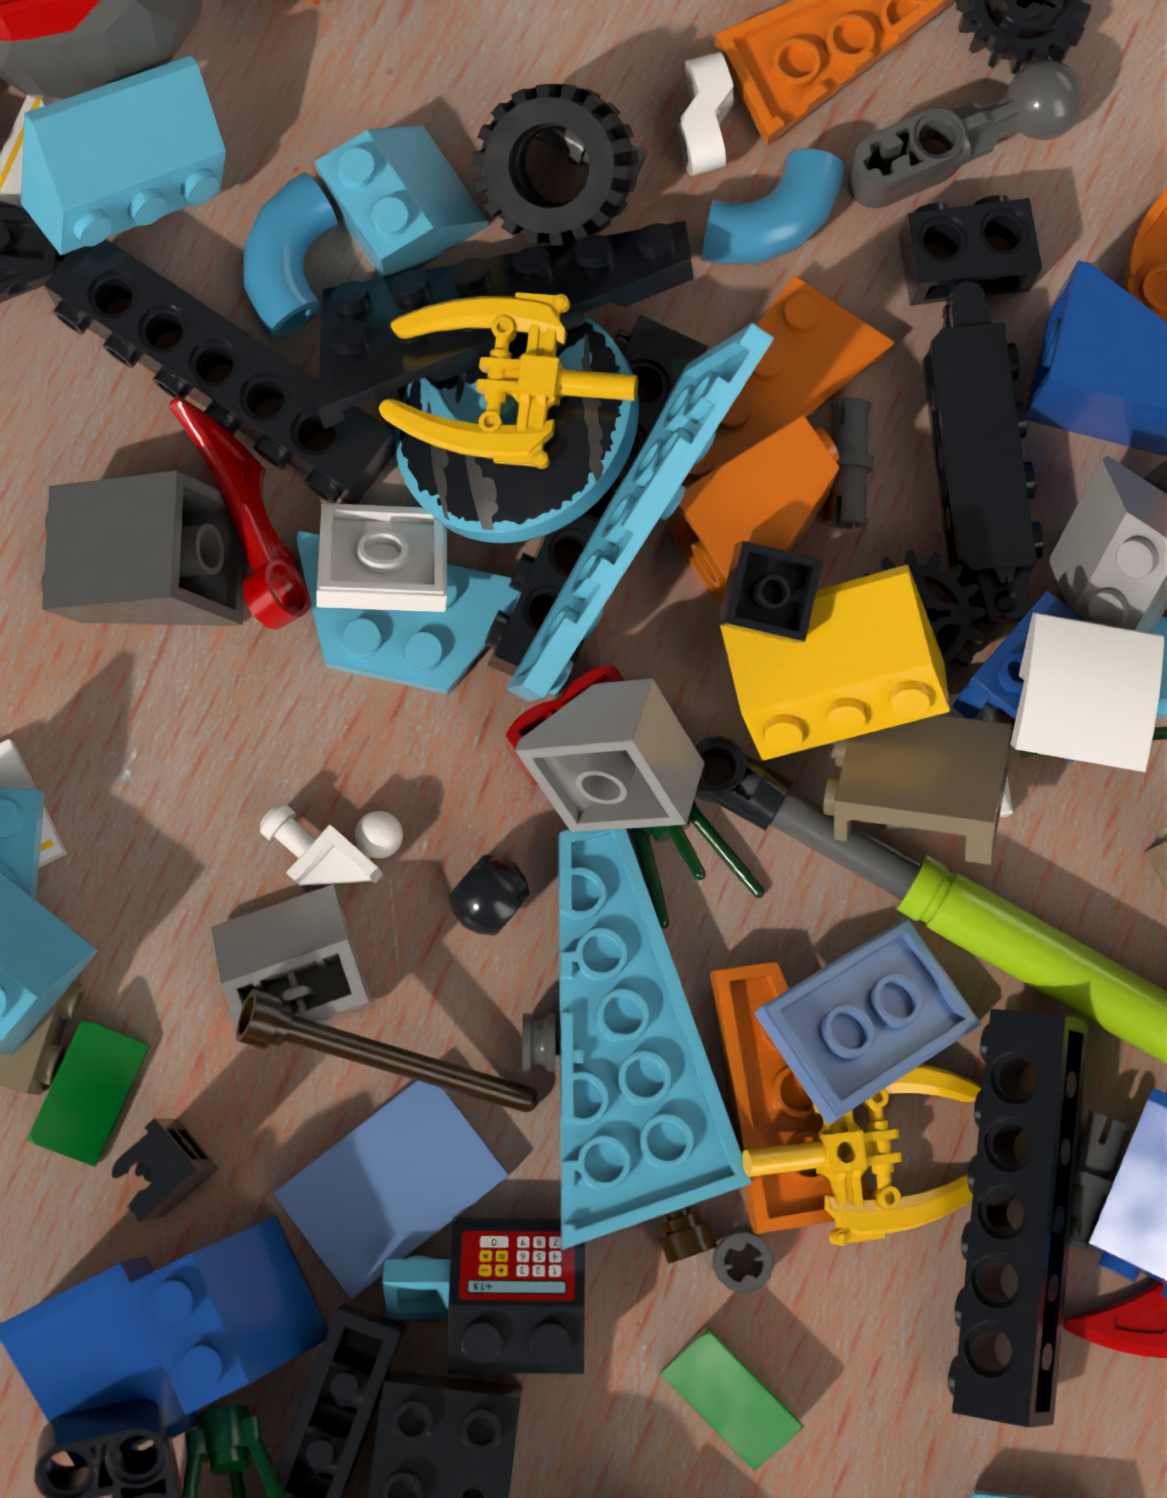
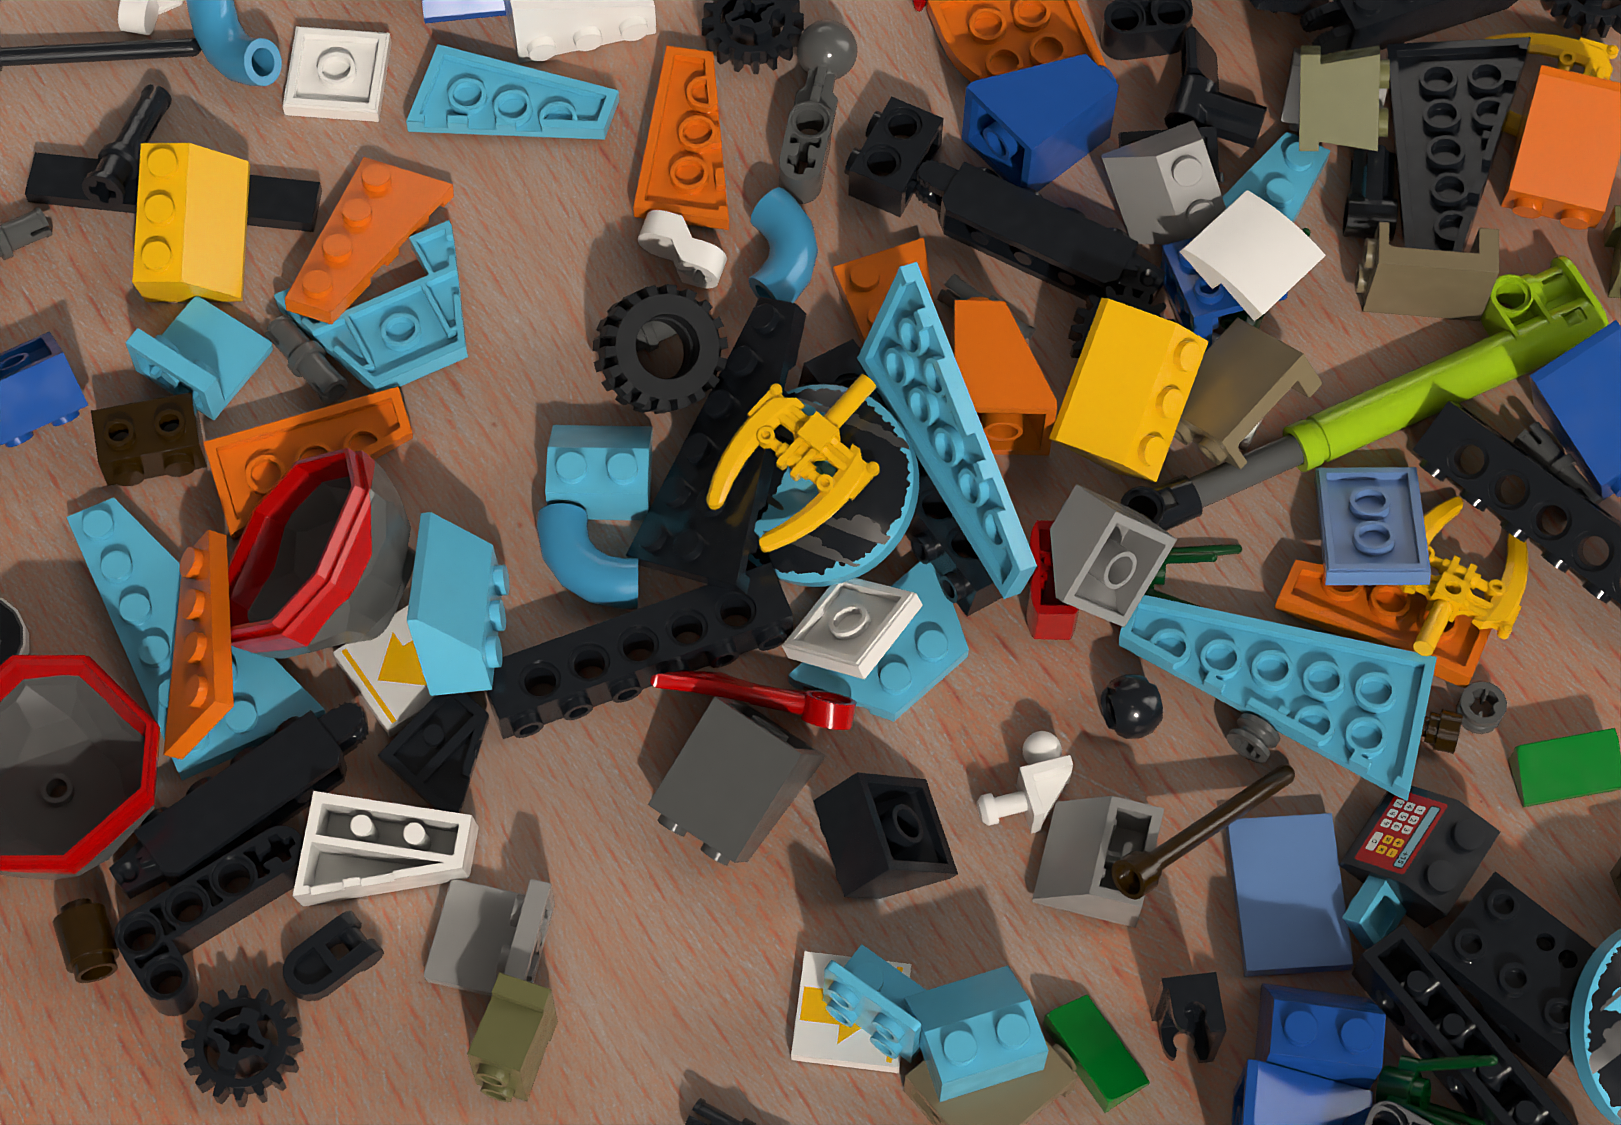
camera: 55 degrees left, 15 degrees down
(181, 738) = (884, 835): none -> black slope
(770, 592) = (1065, 385): black piece -> none

